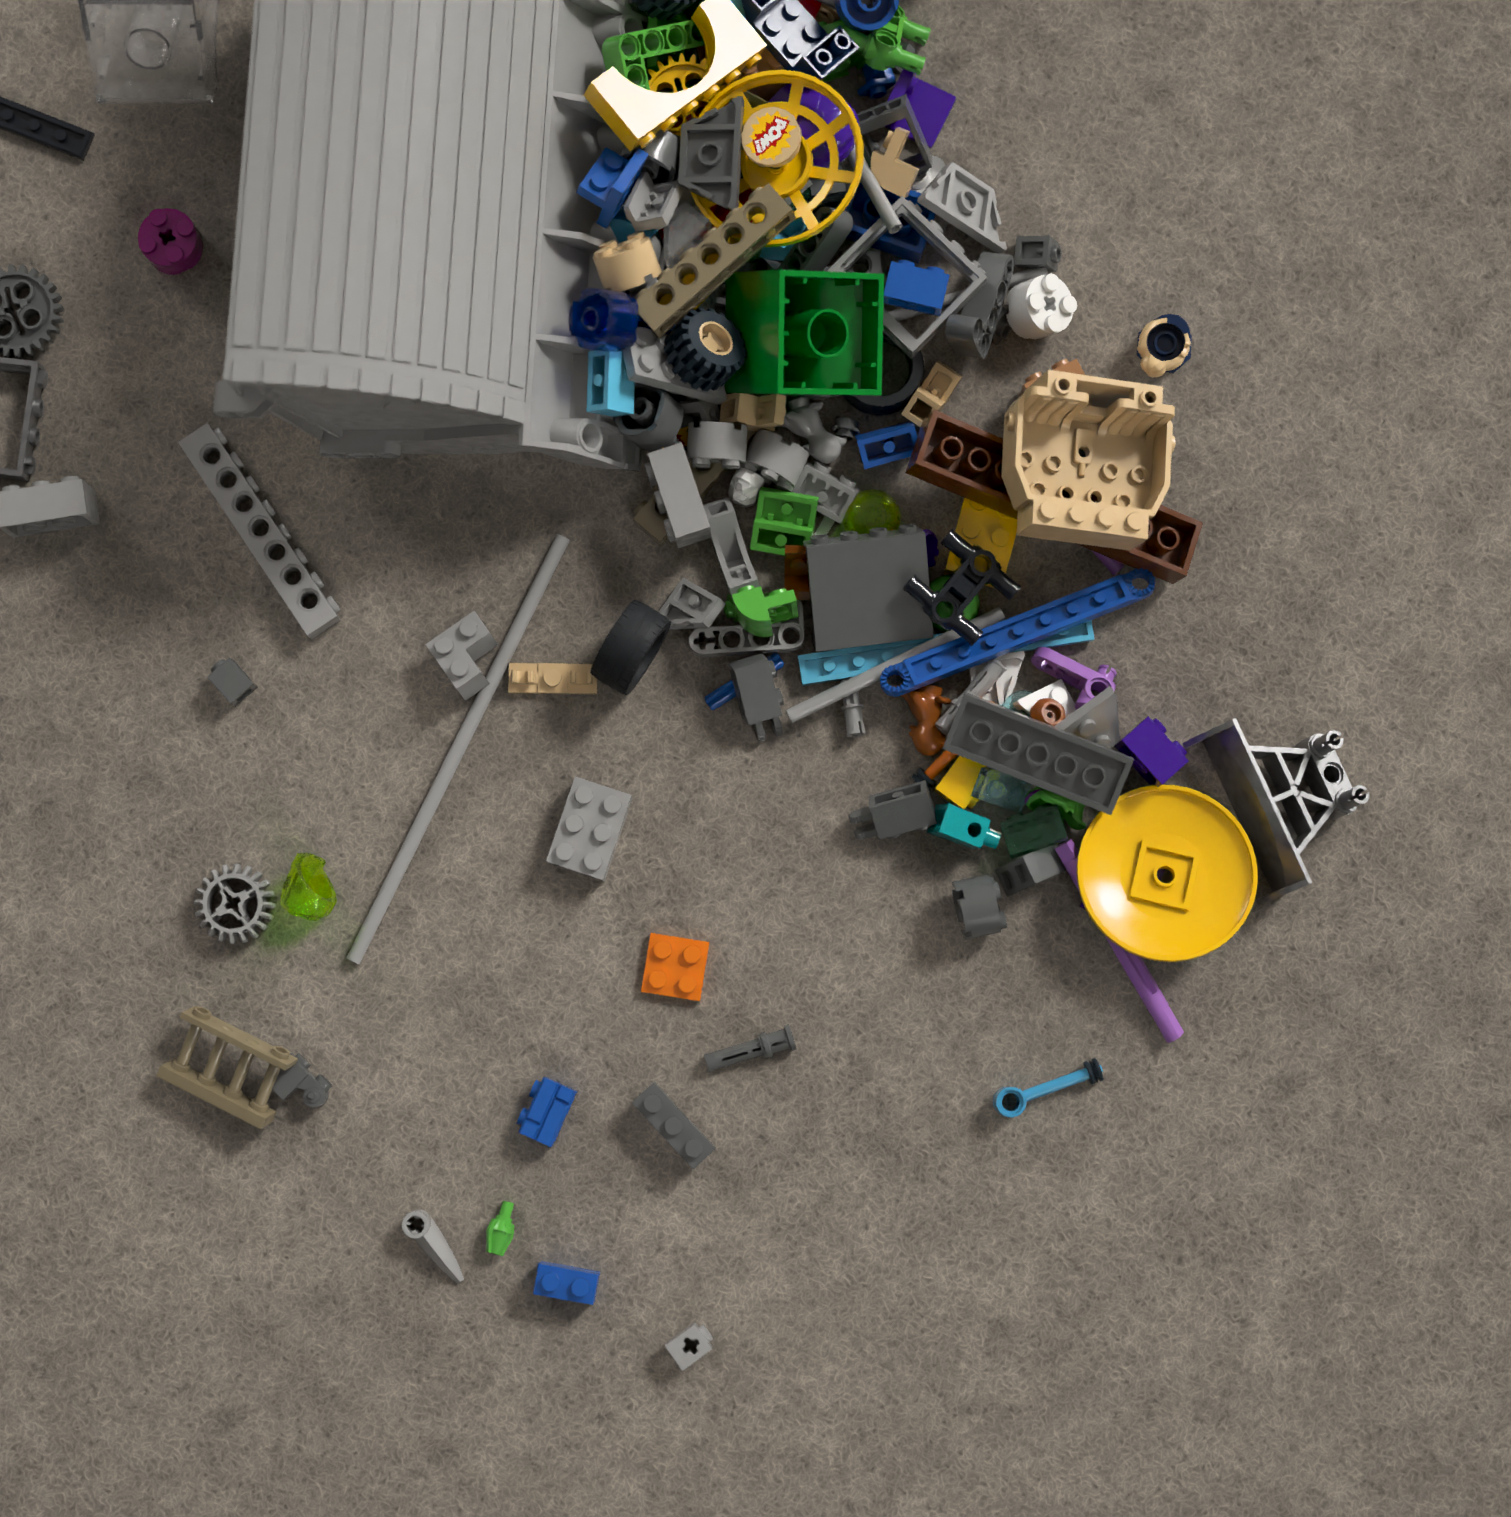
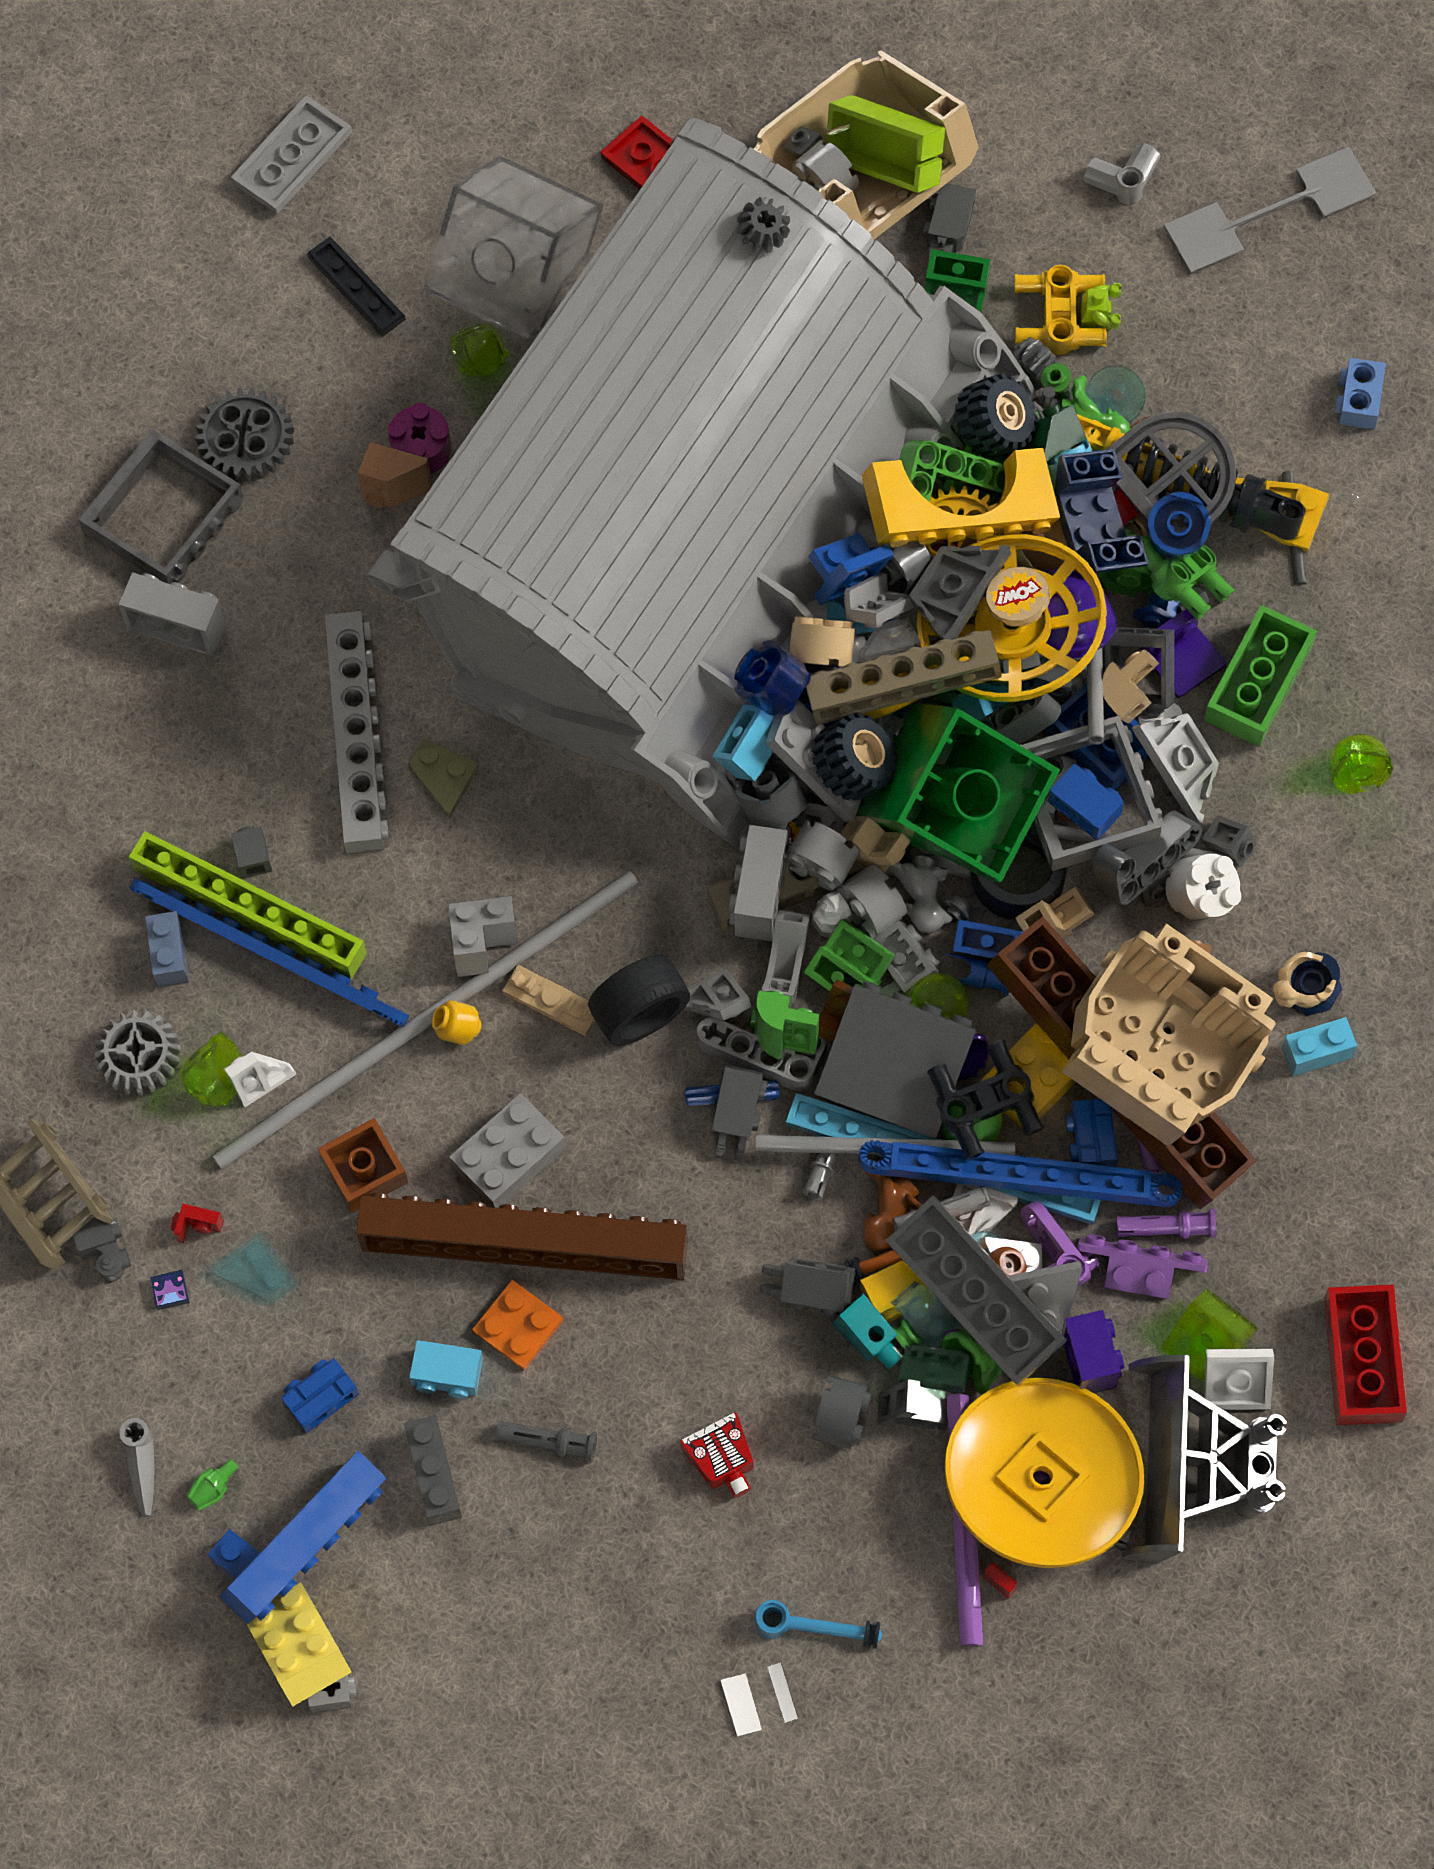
camera: 30 degrees right, 15 degrees down
(166, 287) = (392, 476): none -> medium nougat slope
(174, 131) = (478, 350): none -> clear neon green helmet
(209, 802) = (167, 949): none -> sand blue brick
(255, 730) = (247, 904): none -> lime brick
(308, 759) = (281, 955): none -> blue plate
(347, 873) = (257, 1075): none -> white wing
(354, 528) = (442, 773): none -> olive wing
(370, 1018) = (199, 1218): none -> red bracket
(374, 1087) = (169, 1289): none -> tile
(437, 1033) = (257, 1270): none -> clear light blue wing
(477, 903) = (362, 1164): none -> dark orange brick
(486, 740) = (456, 1022): none -> yellow head
(604, 1240) = (303, 1537): none -> blue brick
(638, 1035) = (446, 1369): none -> medium azure brick
(643, 896) = (522, 1236): none -> reddish brown brick
(645, 1328) = (298, 1646): none -> light yellow brick
(894, 475) = (980, 975): none -> blue piece
(898, 989) = (721, 1454): none -> torso
(992, 95) = (1260, 675): none -> bright green brick
(993, 813) = (906, 1335): none -> bright green bush
(1018, 1178) = (742, 1704): none -> white sticker
(1056, 567) = (1092, 1133): none -> blue brick
(1109, 130) = (1359, 762): none -> clear neon green cylinder
(1149, 657) = (1140, 1268): none -> medium lavender bracket
(1165, 604) = (1183, 1224): none -> medium lavender pin
(1172, 974) = (1000, 1580): none -> red tile
(1201, 395) = (1319, 1046): none -> medium azure brick
(1235, 687) = (1208, 1325): none -> clear neon green slope
(1278, 712) = (1239, 1378): none -> white plate
(1366, 638) = (1365, 1355): none -> red brick

